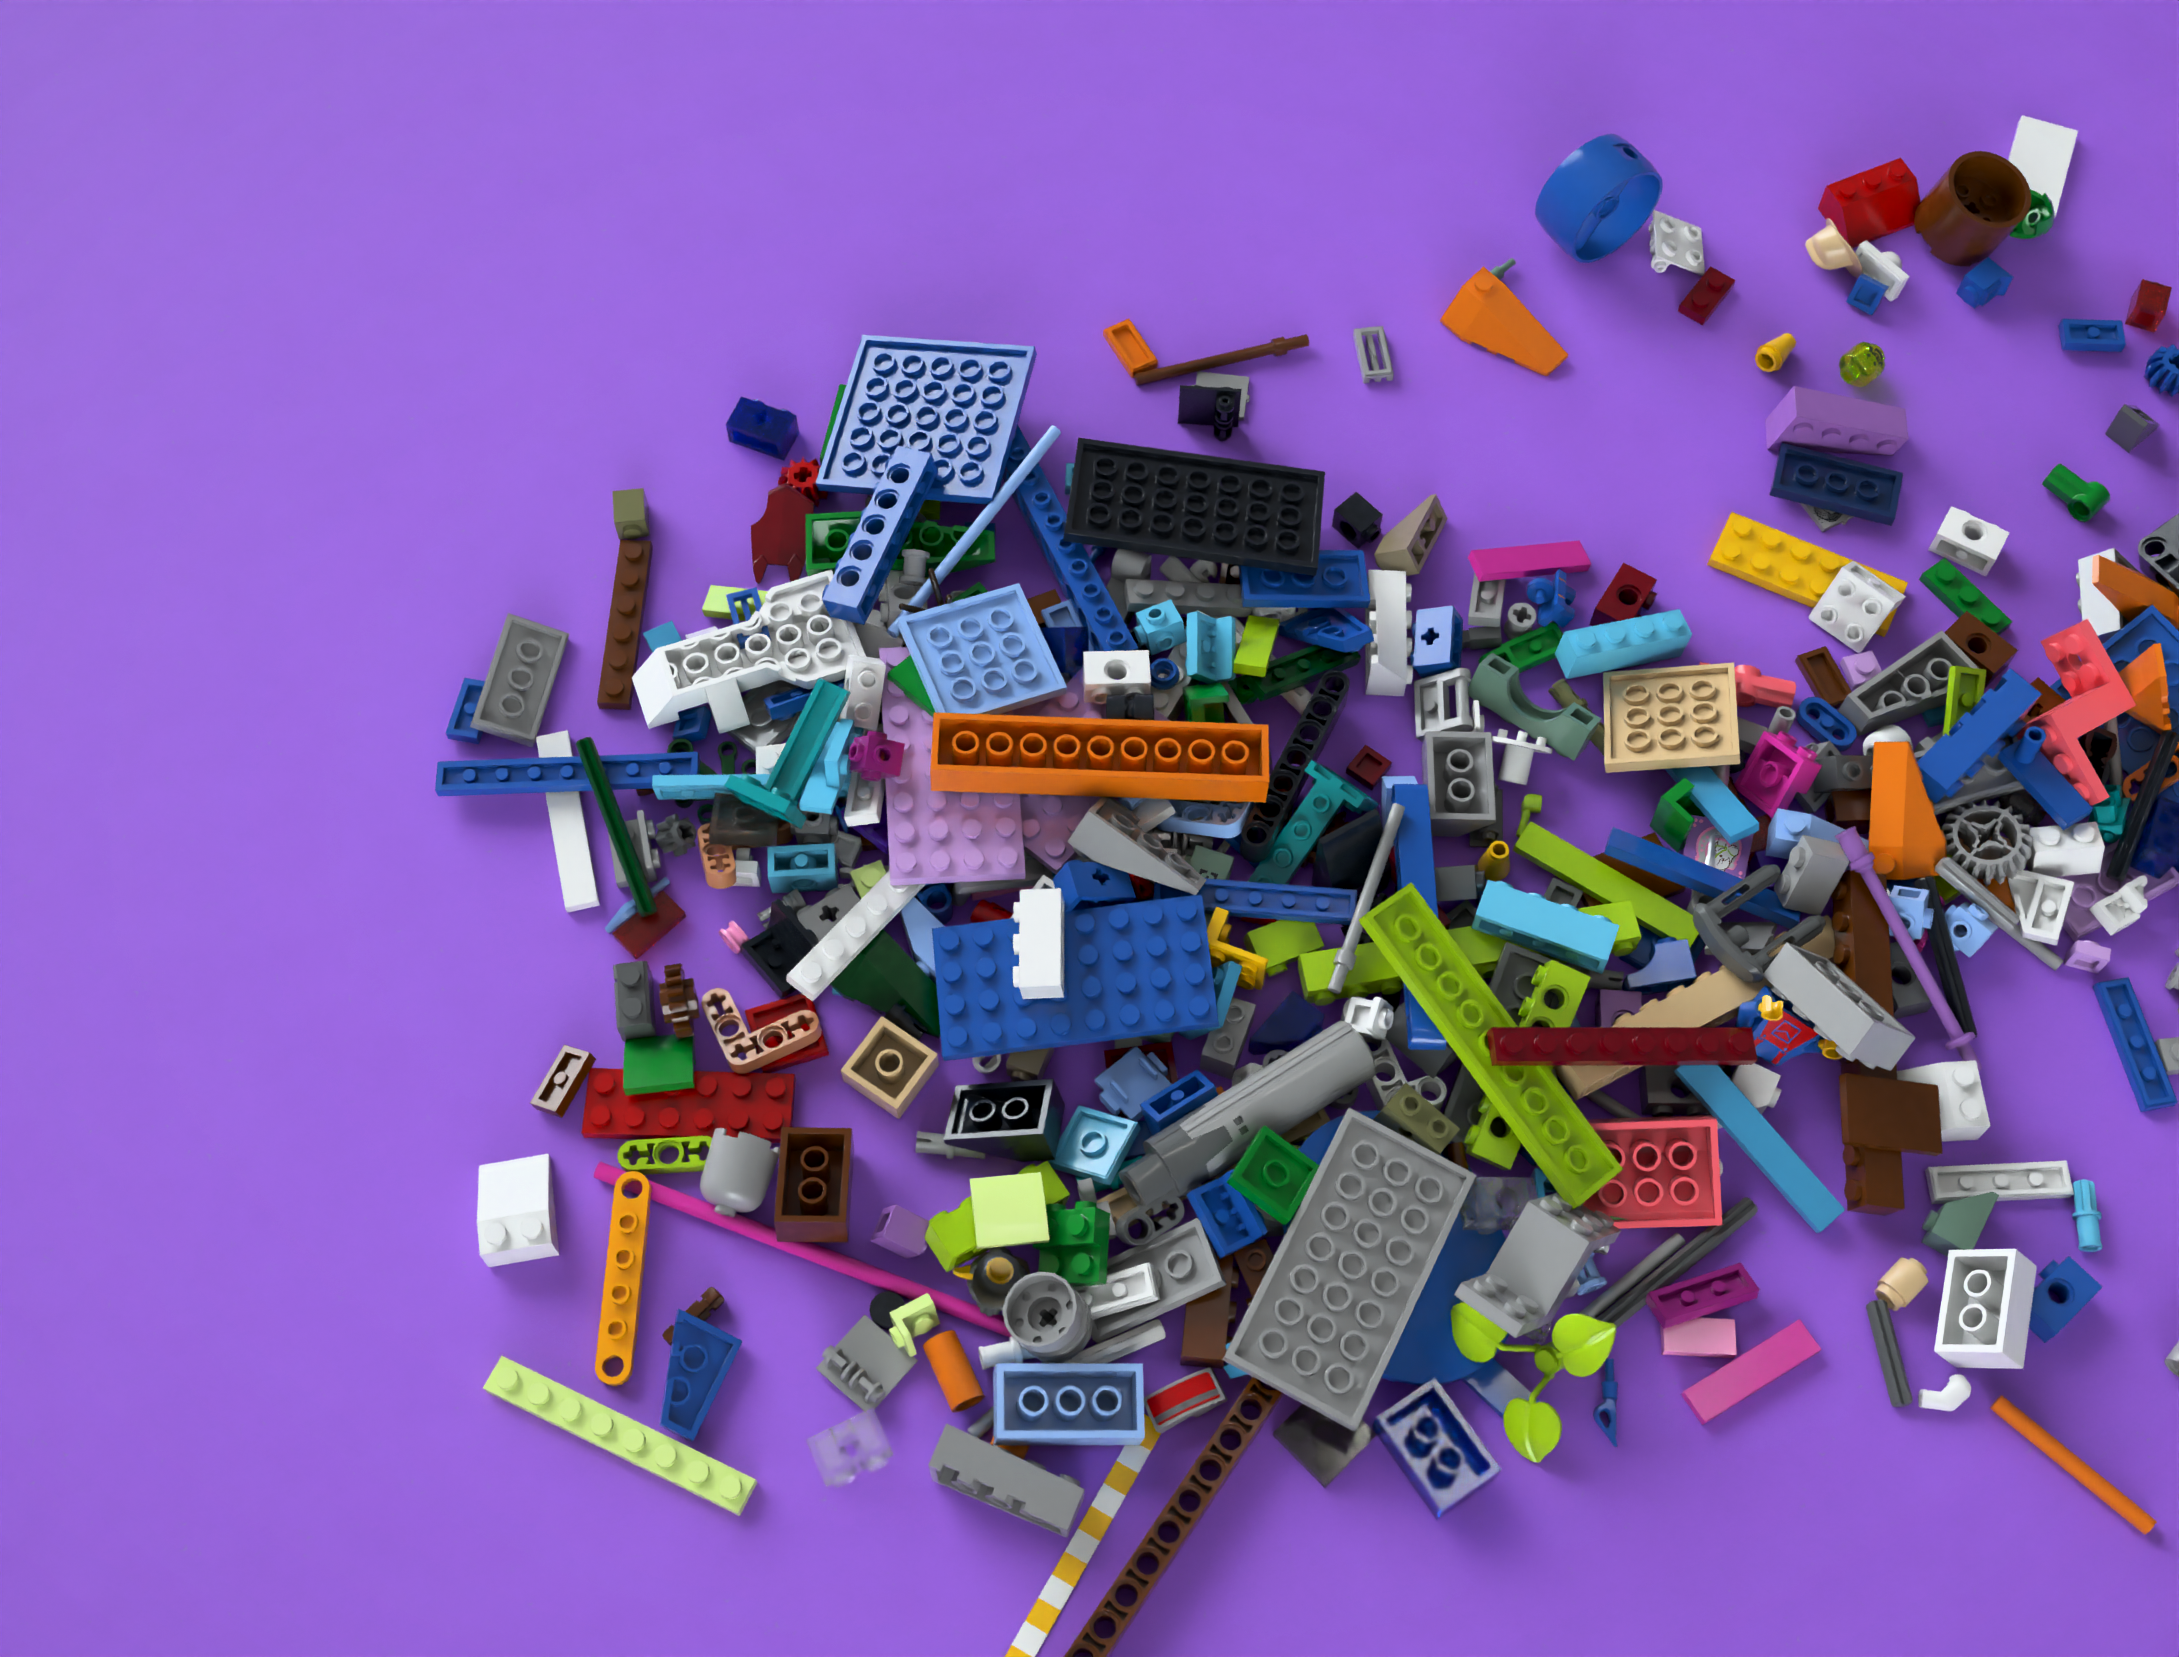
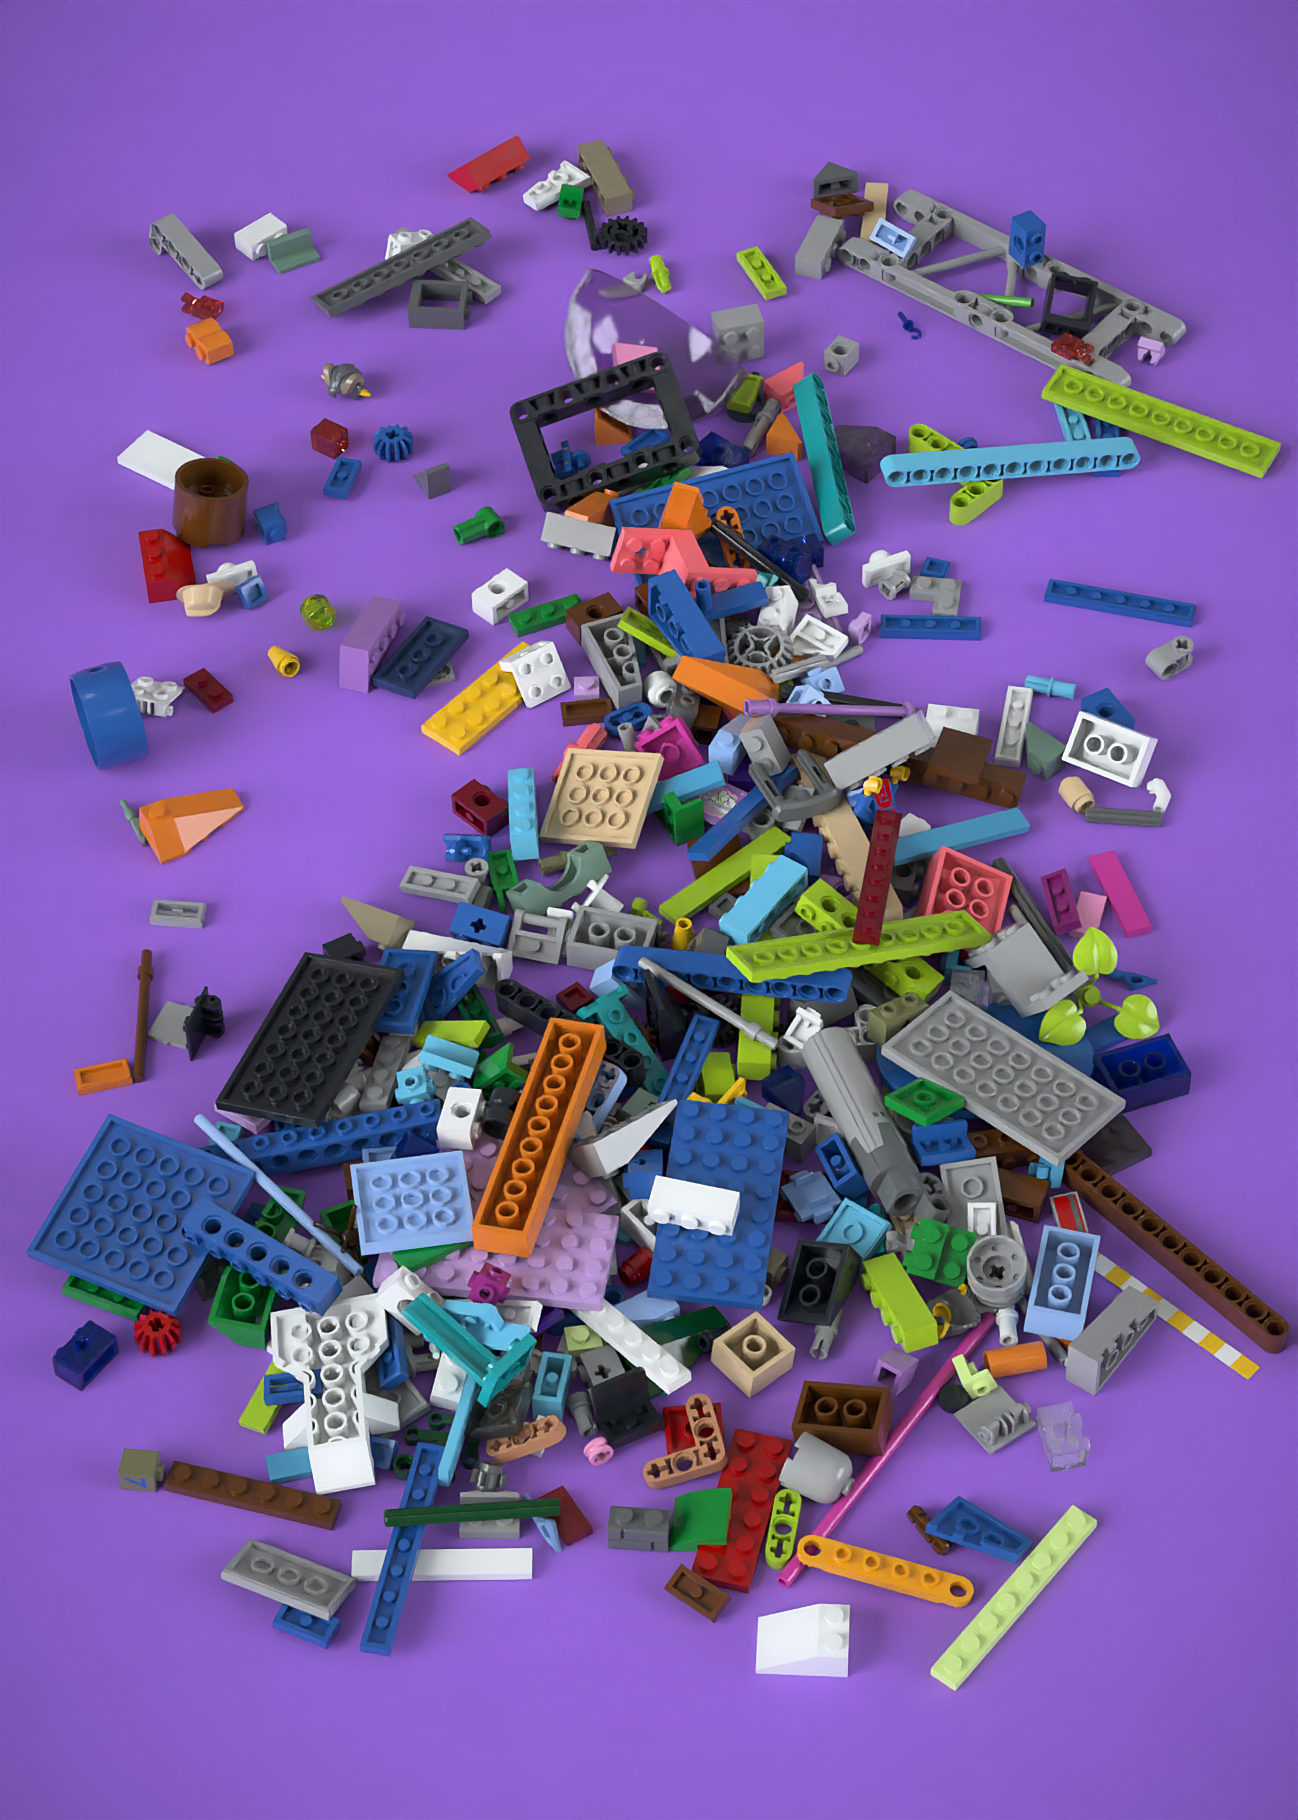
camera: 75 degrees left, 15 degrees down
(679, 1000) = (653, 1487): reddish brown gear -> none
(781, 532) = (207, 1354): dark red shield -> none
(1009, 1210) = (906, 1277): yellowish green slope -> none
(1529, 560) = (425, 853): dark pink tile -> none
(2073, 1465) = (1220, 745): orange piece -> none

